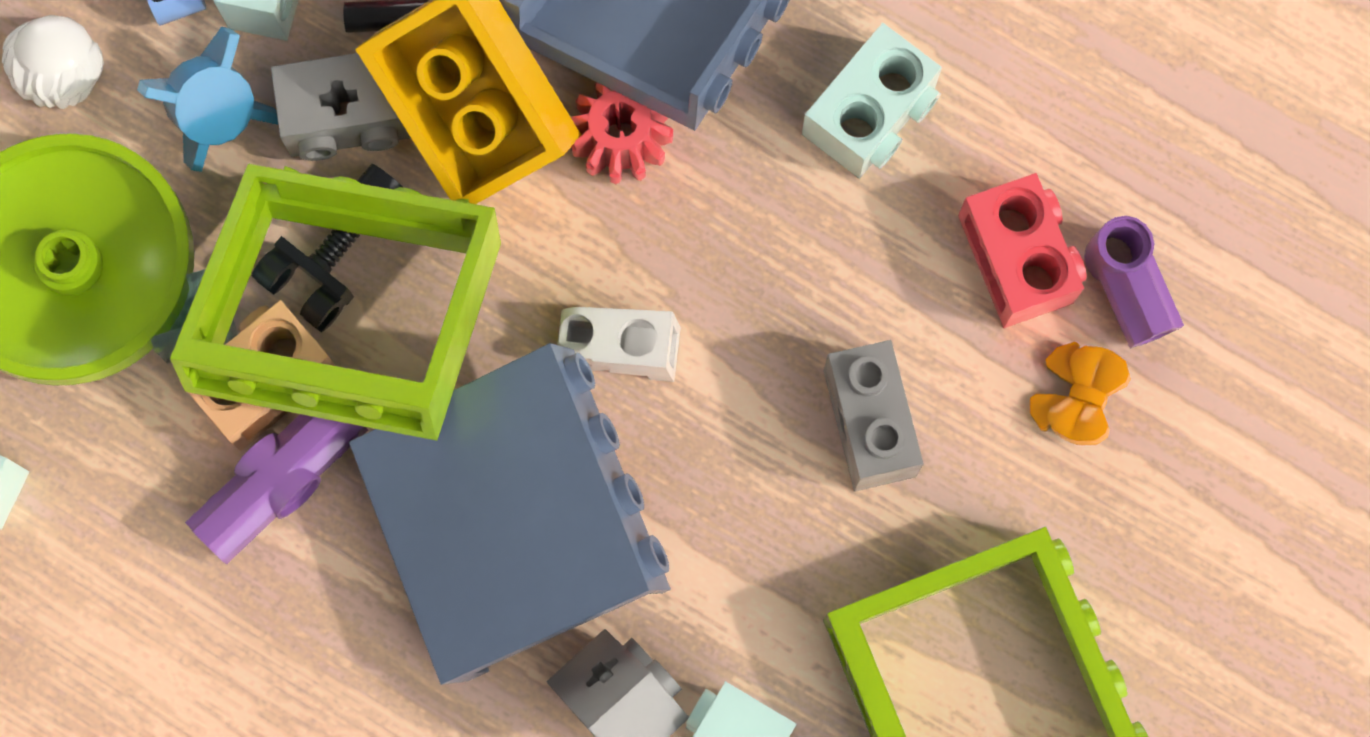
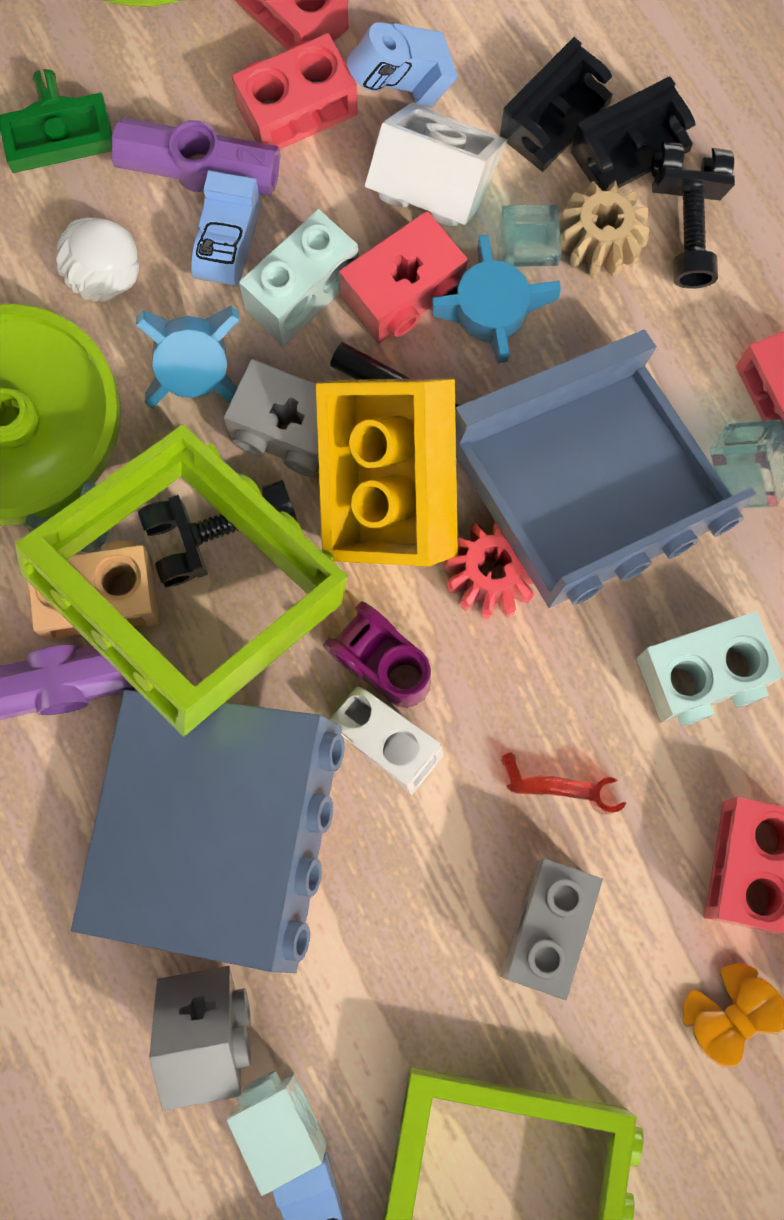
camera: 30 degrees right, 0 degrees up
(555, 267) = (373, 648): none -> magenta piece
(803, 289) = (559, 786): none -> clear red piece

